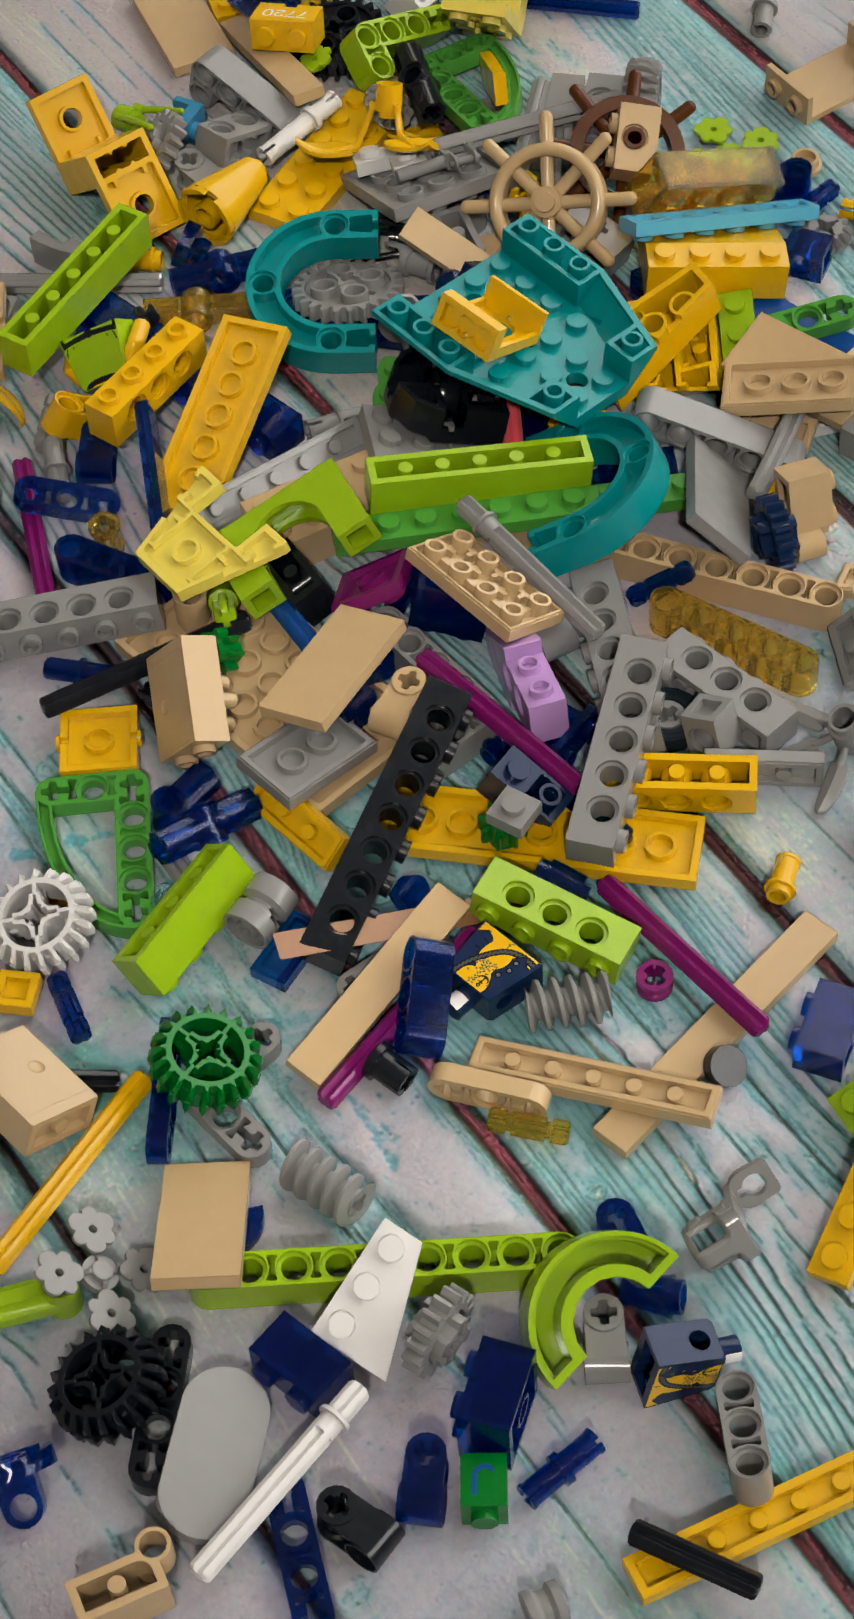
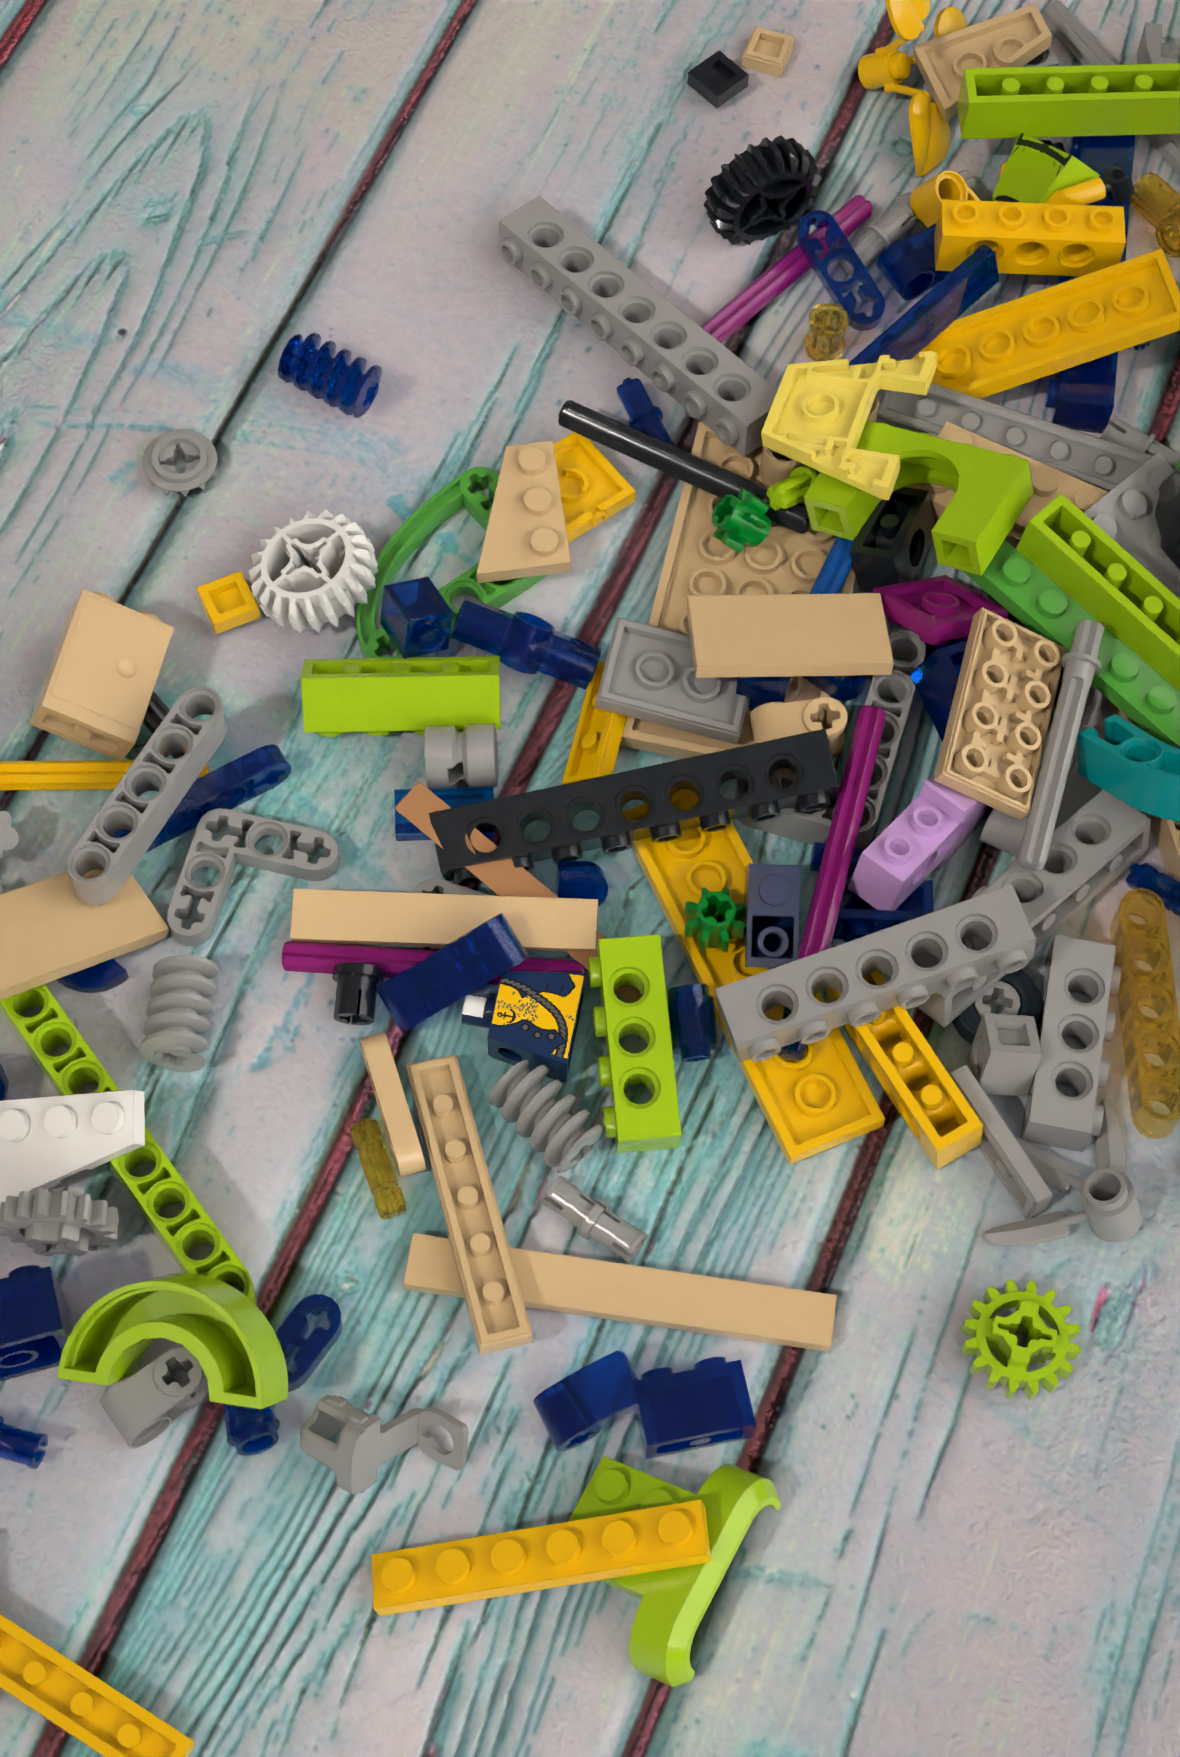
camera: 50 degrees right, 10 degrees up
(69, 1007) = (244, 657): clear blue axle -> none
(89, 562) = (778, 336): clear blue beam -> none
(109, 773) = (526, 518): none -> tan wing
(139, 873) = (416, 617): none -> clear blue brick
(153, 1120) = (147, 815): none -> light grey beam
(188, 700) = (651, 532): tan piece -> none
(188, 791) = (554, 601): clear blue piece -> none
(202, 1040) = (254, 813): green gear -> none
(514, 812) = (721, 918): light grey plate -> none
(654, 992) = (631, 1178): magenta bush -> none
(657, 1017) = (594, 1219): none -> light grey pin
(680, 1360) = (162, 1465): dark blue torso -> none
(684, 956) = (685, 1201): magenta axle -> none
(725, 1066) = (574, 1324): tile -> none
(744, 1438) = (104, 1626): light grey beam -> none
(781, 886) = (864, 1247): yellow pin -> none
(787, 1082) = (586, 1398): none -> clear blue panel

